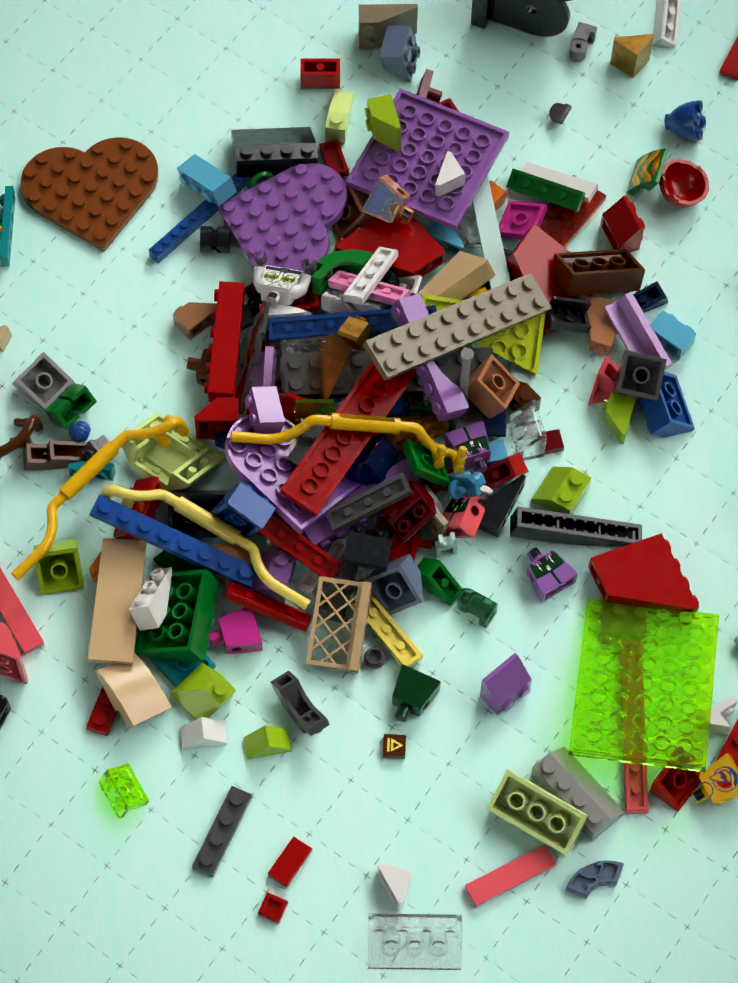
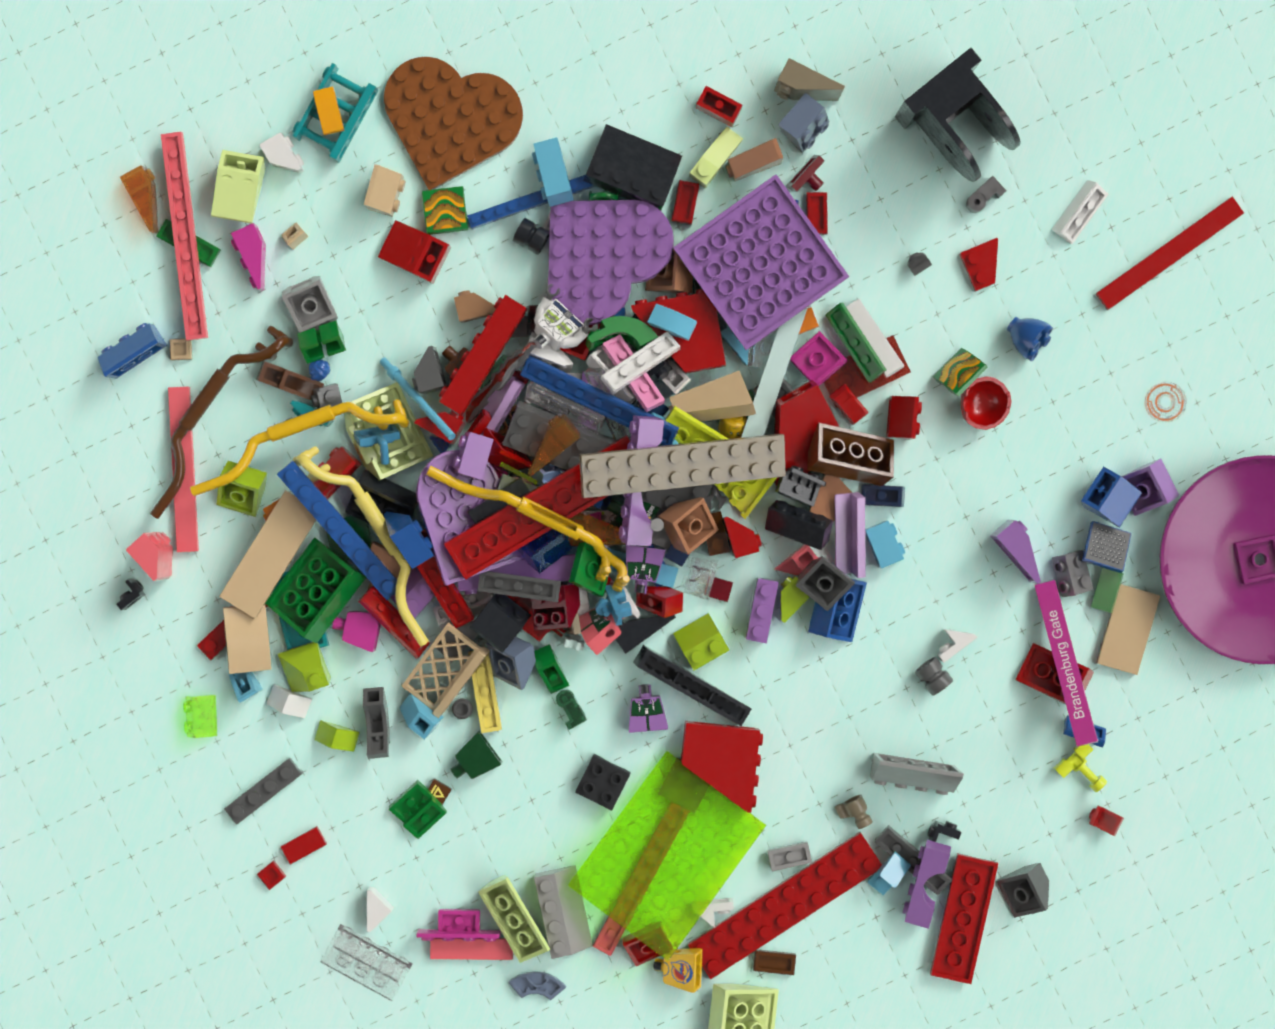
camera: 30 degrees right, 25 degrees up
(64, 262) = (384, 191): none -> tan slope
(117, 297) = (414, 251): none -> red slope
(126, 256) = (445, 210): none -> slope
(152, 601) = (299, 569): white slope -> none
(152, 737) = (245, 685): none -> medium azure slope
(153, 401) = (396, 375): none -> medium azure bar
(173, 453) = (374, 435): none -> dark azure plate
(186, 383) = (429, 373): none -> dark grey slope
(337, 679) = (419, 716): none -> medium azure slope
(355, 331) = (589, 422): pearl gold slope -> none
(381, 234) = (672, 321): none -> medium azure slope
(382, 83) = (755, 160): none -> nougat slope
(383, 121) = (735, 211): lime slope -> none
(383, 769) = (417, 809): none -> green slope
(388, 201) = (697, 294): torso -> none
(450, 176) = (766, 298): white slope -> none
(484, 855) = (458, 924): none -> dark pink bracket
(506, 685) = (553, 794): medium lavender slope -> none
(545, 380) = (742, 539): none -> red slope
(546, 655) = (602, 782): none -> black brick
(569, 240) = (848, 404): none -> red tile
(587, 346) = (798, 524): none -> black brick
(599, 437) = (761, 610): none -> medium lavender brick
(611, 93) = (981, 264): none -> red wing
(631, 53) = (1021, 238): pearl gold slope -> none

